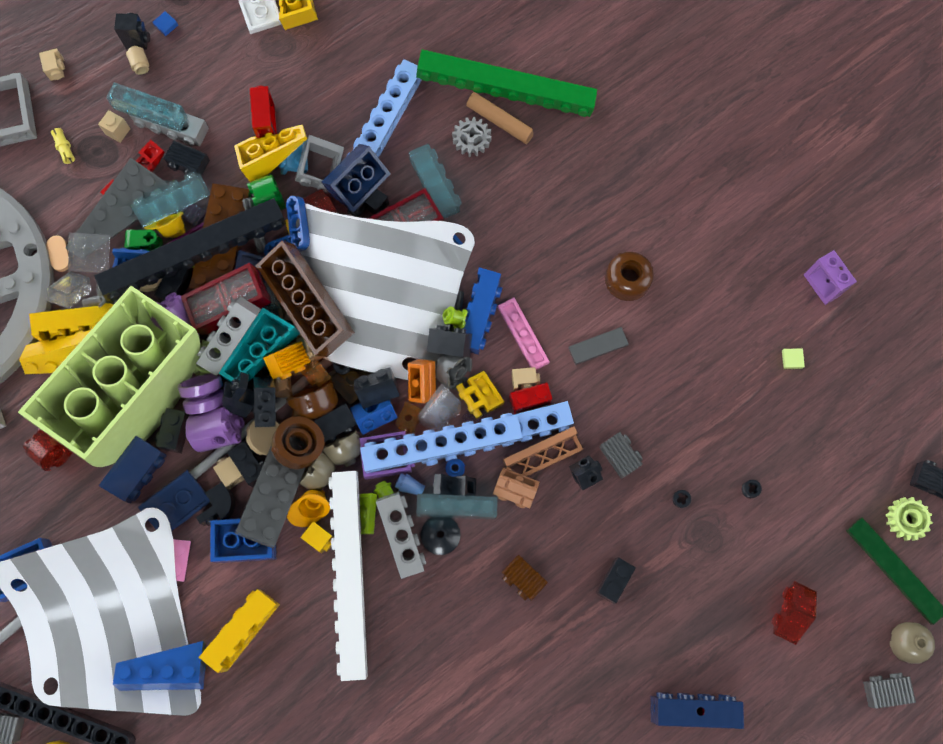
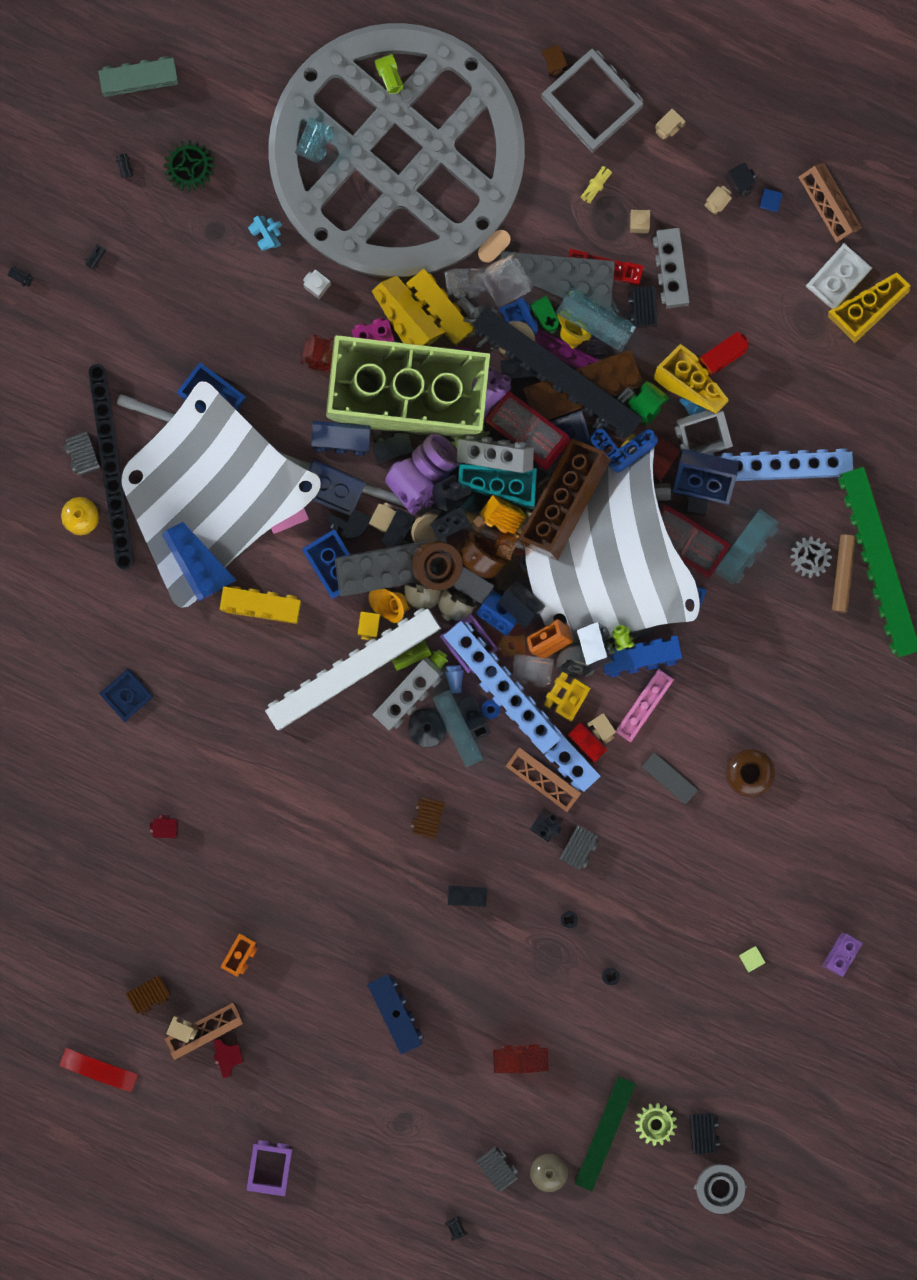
camera: 65 degrees right, 10 degrees up
(146, 107) = (669, 248): clear light blue brick -> none
(516, 488) = (500, 771): nougat brick -> none

